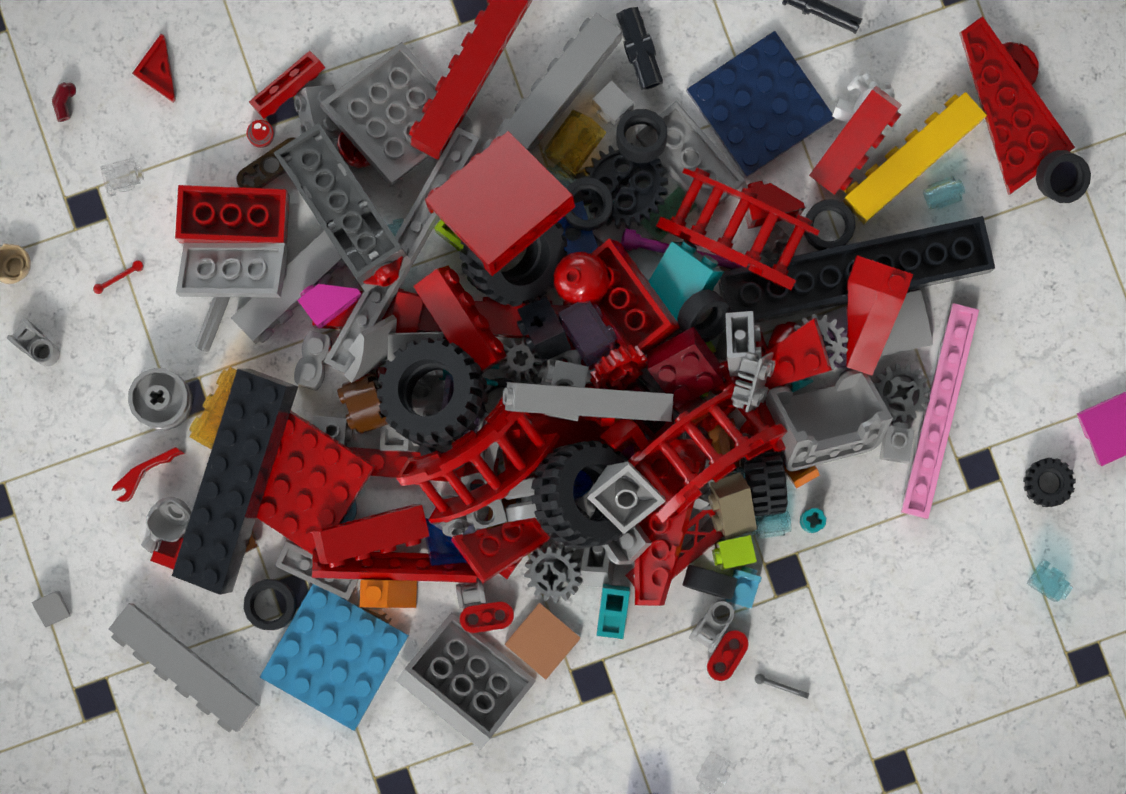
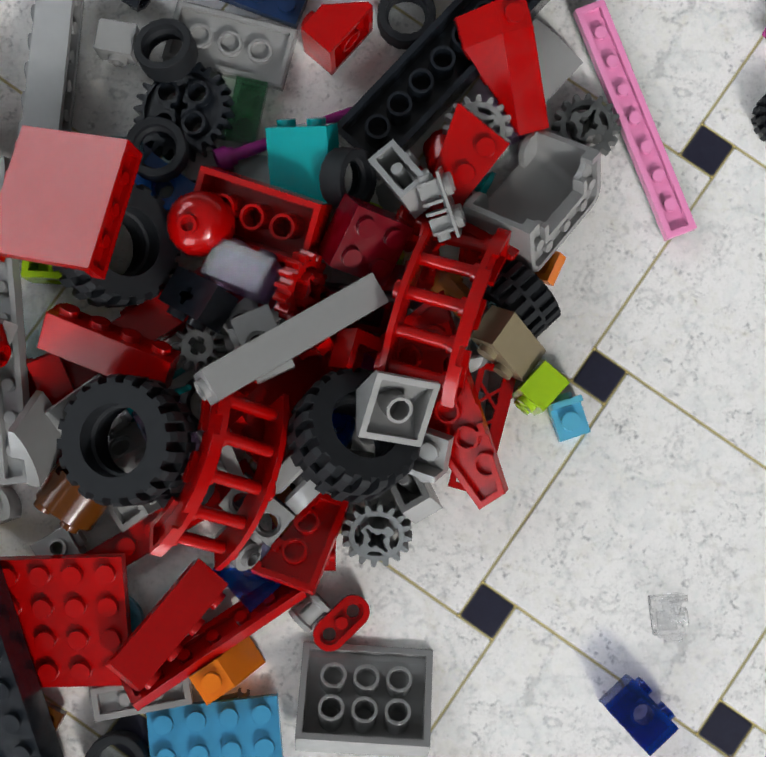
camera: 40 degrees left, 0 degrees up
(542, 641) = (412, 606): nougat tile -> none
(574, 142) = (105, 101): clear yellow brick -> none
(613, 611) = (460, 529): teal brick -> none
(710, 582) = (535, 434): black tyre -> none
(712, 626) = (566, 475): light grey piece -> none
(724, 245) = (319, 96): red fence -> none
(727, 655) = (602, 493): red plate -> none
(760, 679) = (646, 493): dark grey hinge -> none
(772, 525) = (556, 337): clear light blue brick -> none
(775, 243) = (363, 68): light grey gear -> none
(805, 525) = (589, 315): teal bush -> none
(897, 443) = (618, 177): light grey brick -> none

